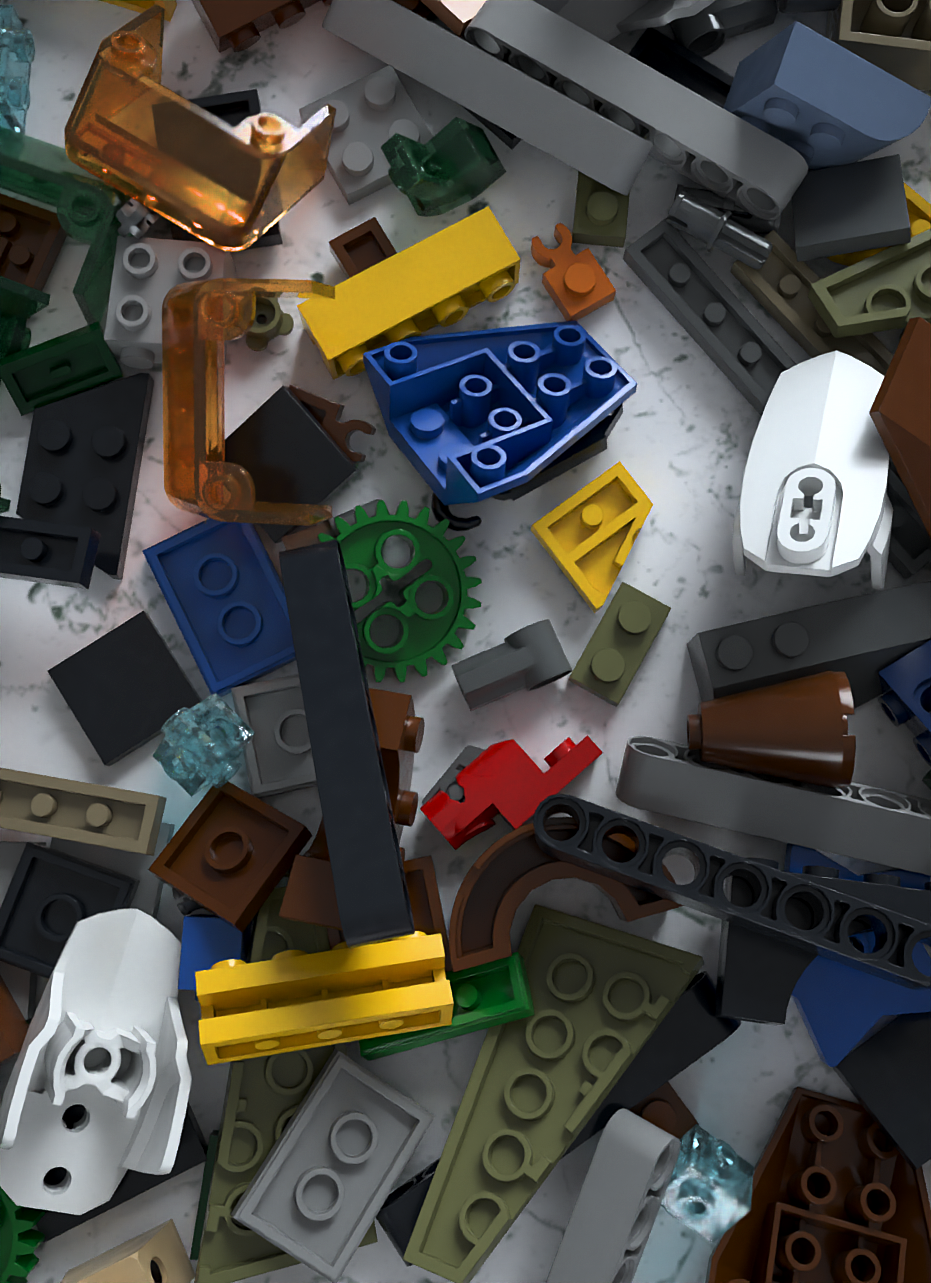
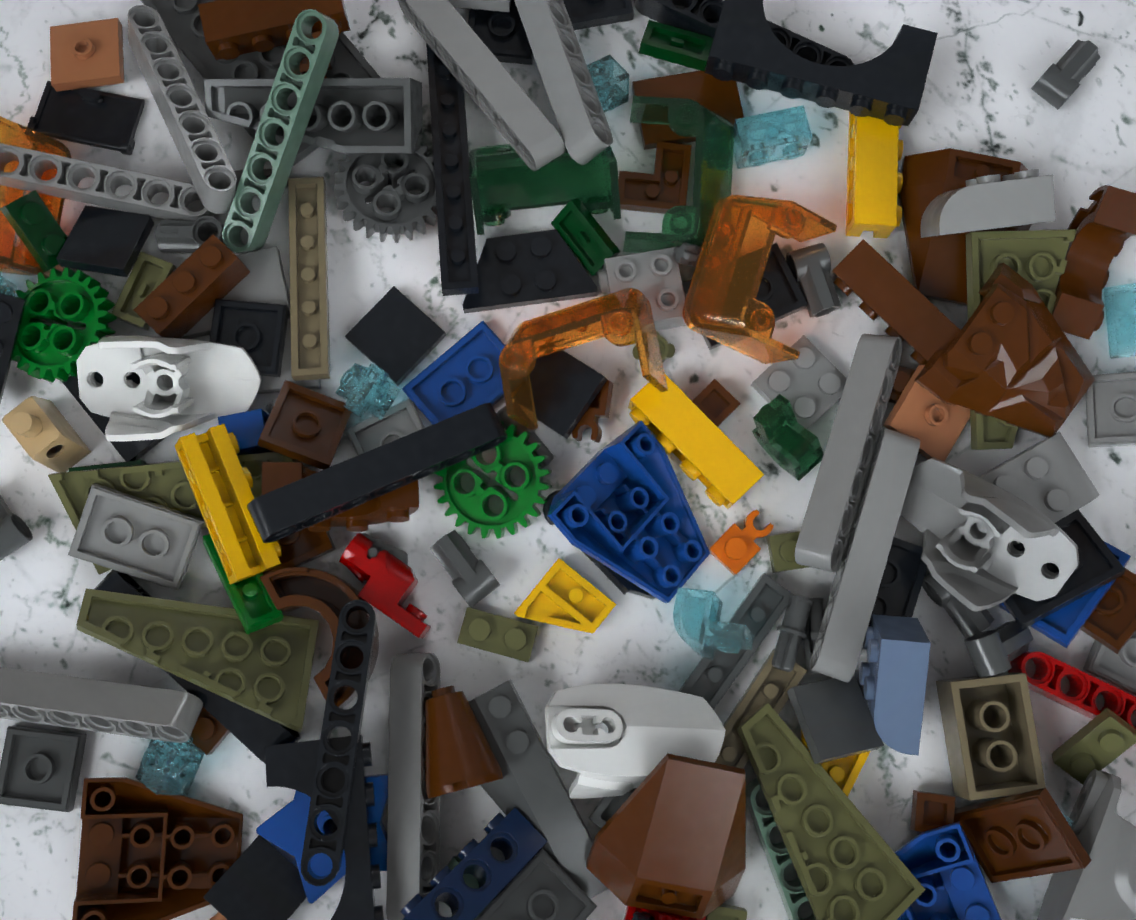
camera: 75 degrees right, 0 degrees up
(209, 70) = (812, 272): none -> dark grey piece
(686, 352) = (698, 624): none -> clear light blue brick

